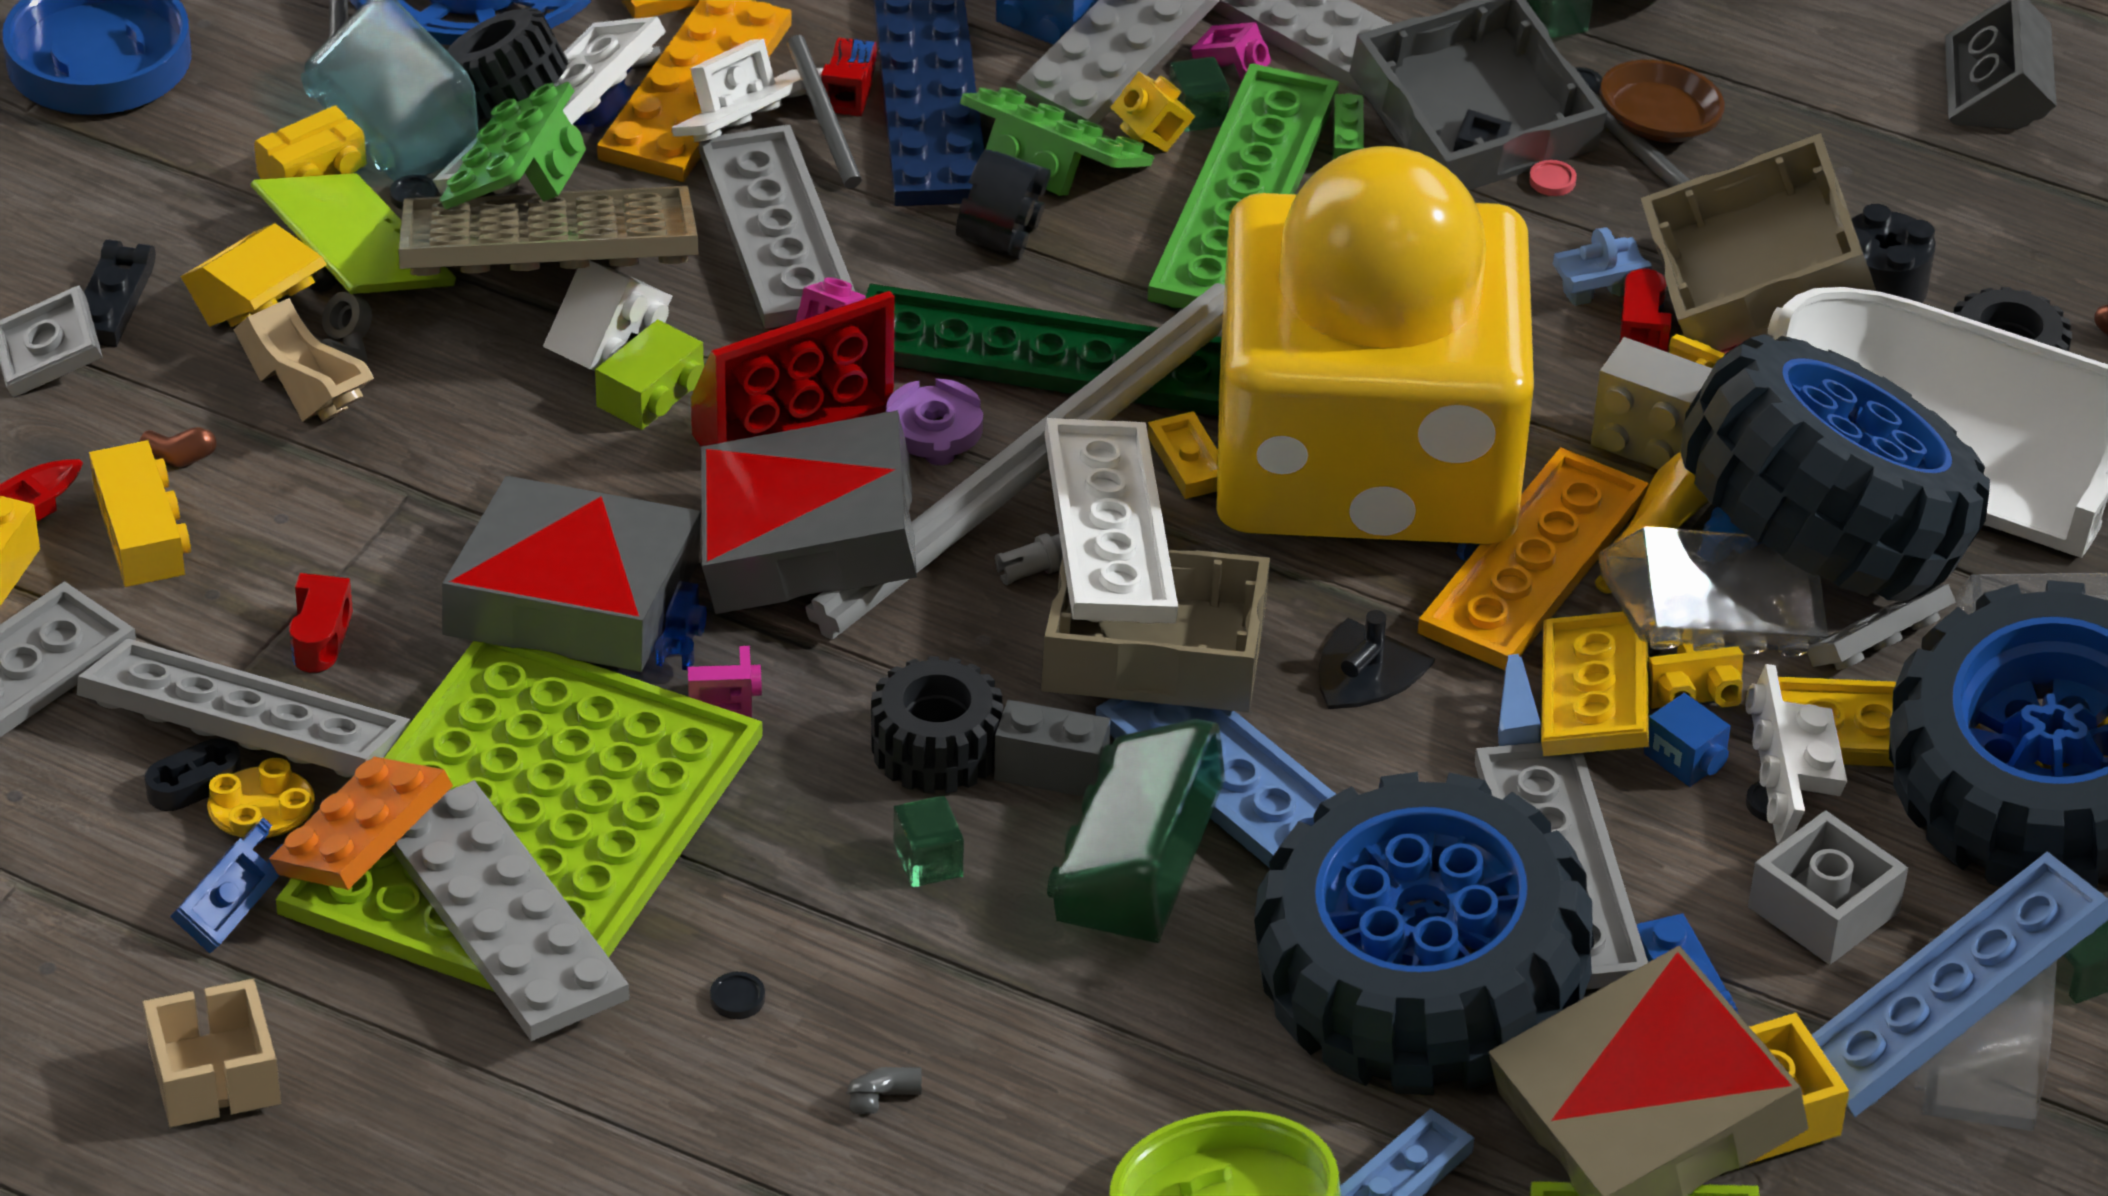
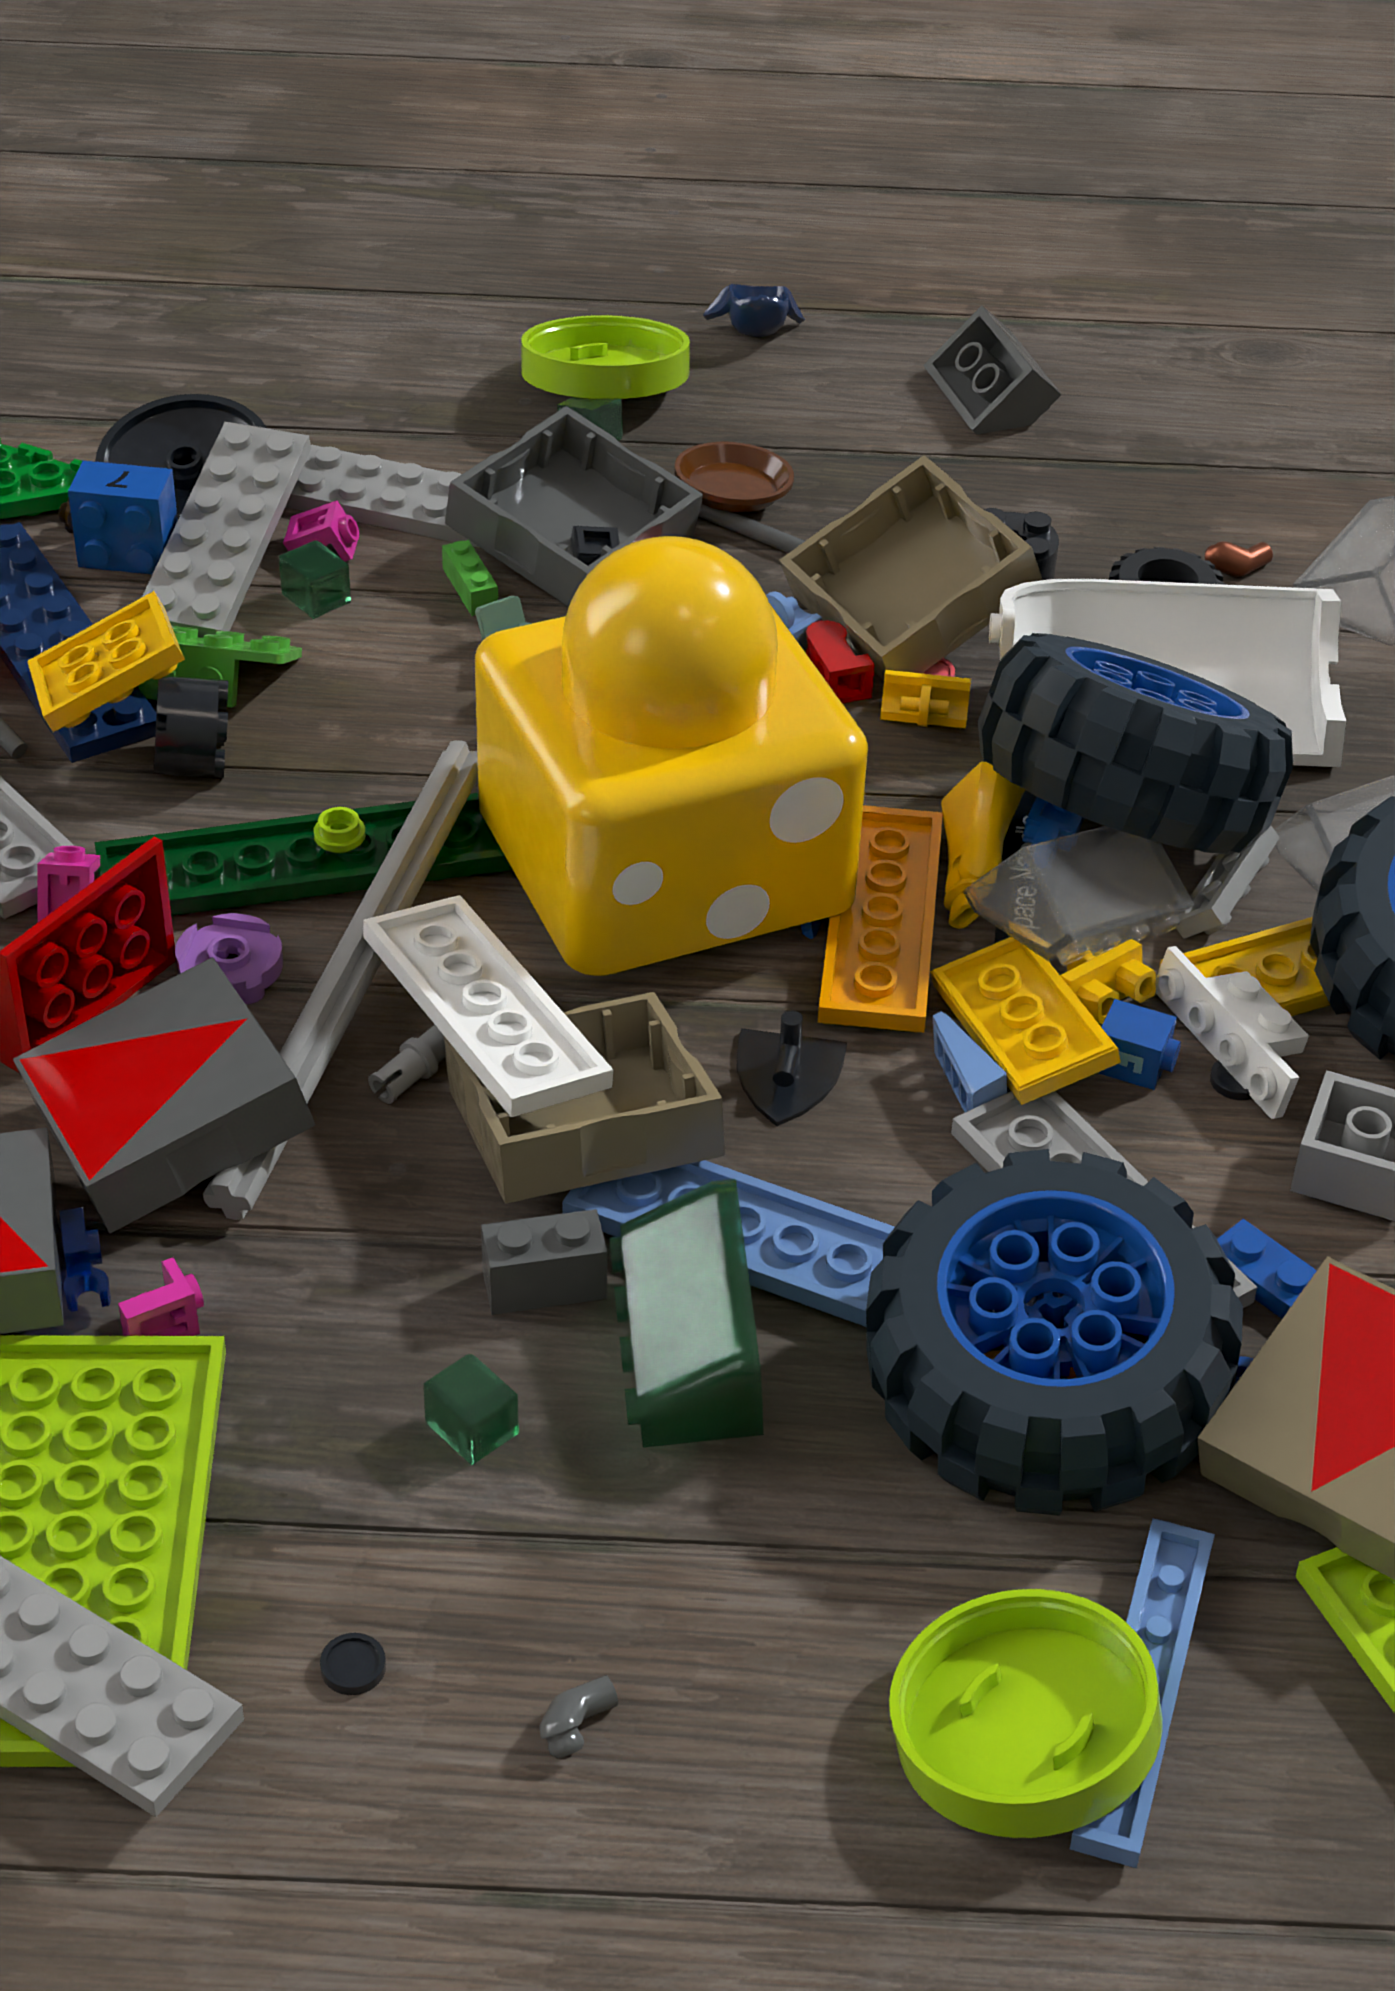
camera: 25 degrees left, 0 degrees up
(935, 724) = (413, 1310): black tyre -> none
(949, 121) = (105, 662): none -> yellow plate
(1082, 335) = (339, 830): none -> lime plate
(1145, 105) = (282, 604): yellow brick -> none
(1186, 453) = (505, 914): yellow plate -> none
(1257, 150) = (405, 654): bright green plate -> none
(1644, 402) = (911, 739): light grey brick -> none

